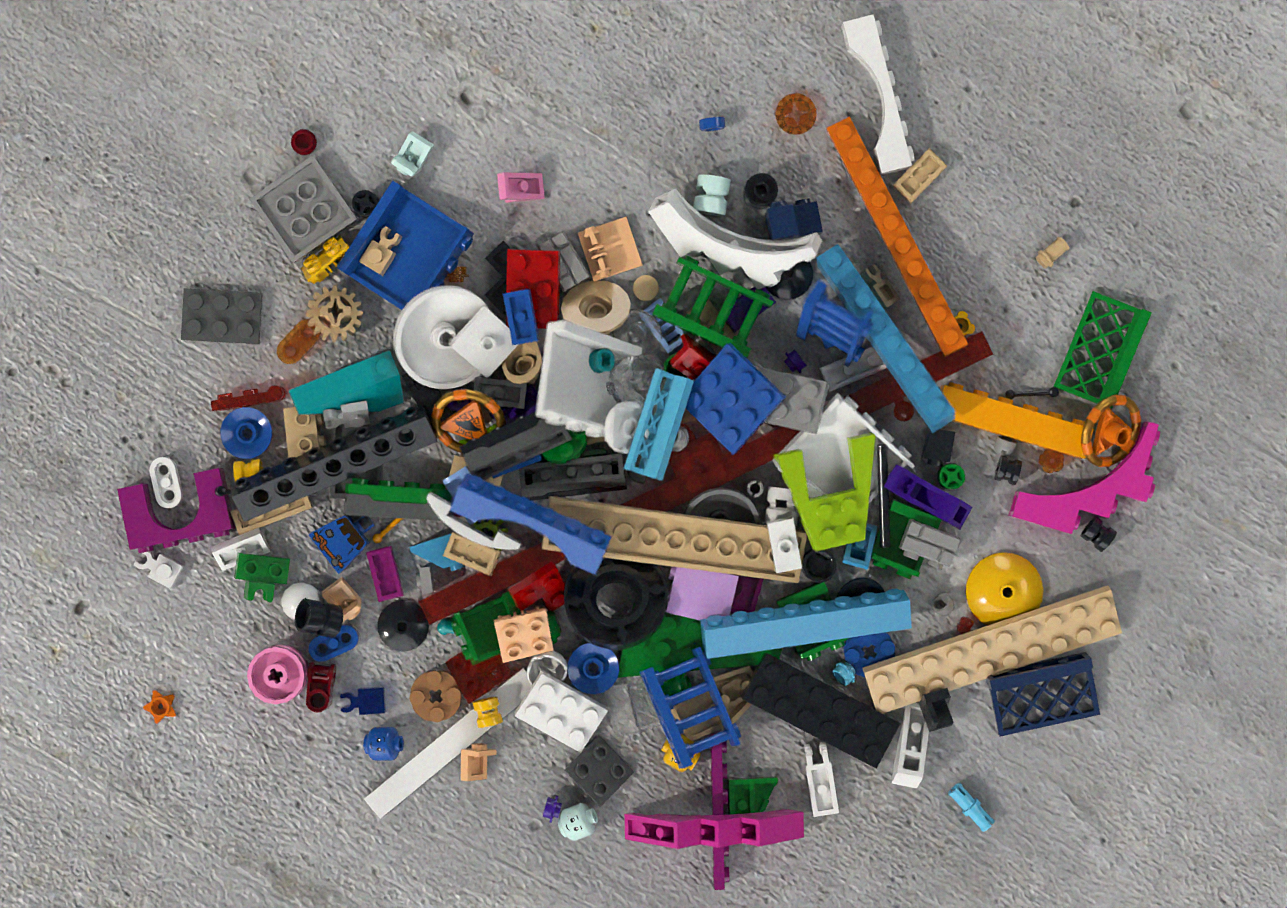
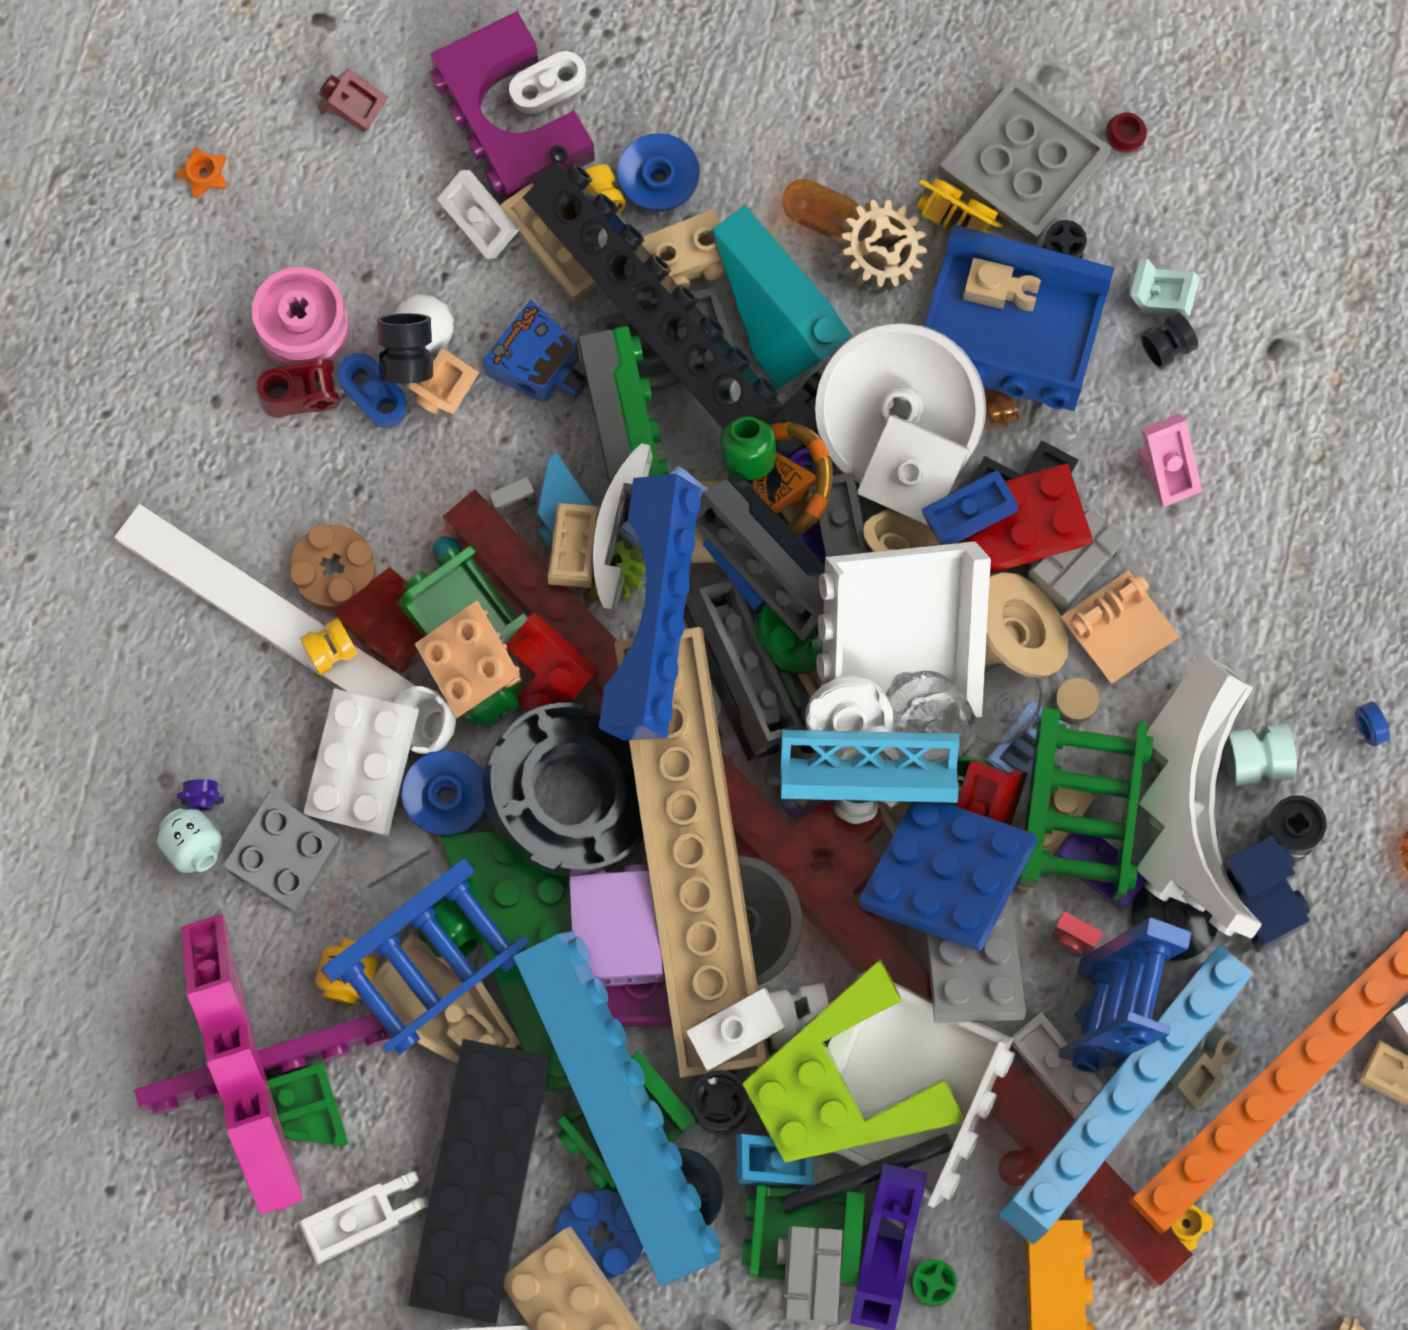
camera: 75 degrees right, 15 degrees down
(141, 605) = (351, 99): none -> bracket
(163, 569) = (414, 116): white plate -> none
(221, 316) = (823, 92): dark grey plate -> none
(249, 398) = (712, 162): clear red plate -> none
(261, 573) = (450, 253): green plate -> none
(350, 415) = (735, 306): light grey plate -> none
(369, 701) = (296, 467): clear blue plate -> none
(377, 538) = (555, 410): light orange hinge -> none
(383, 743) = (234, 506): blue head -> none
(385, 573) = (503, 435): magenta plate -> none
(416, 623) = (423, 506): black dish -> none
(445, 161) = (1169, 340): none -> black wheel
(446, 435) = (748, 448): none -> green head
(475, 762) = (242, 654): light nougat bracket -> none
(601, 360) = (940, 664): teal bush -> none
(747, 488) = (810, 973): light grey pin -> none
(783, 335) = (1076, 935): none -> coral plate
(794, 361) = (1038, 968): dark purple plate -> none
(844, 673) = (552, 1202): medium azure plate -> none
(938, 446) = (977, 1245): black brick -> none

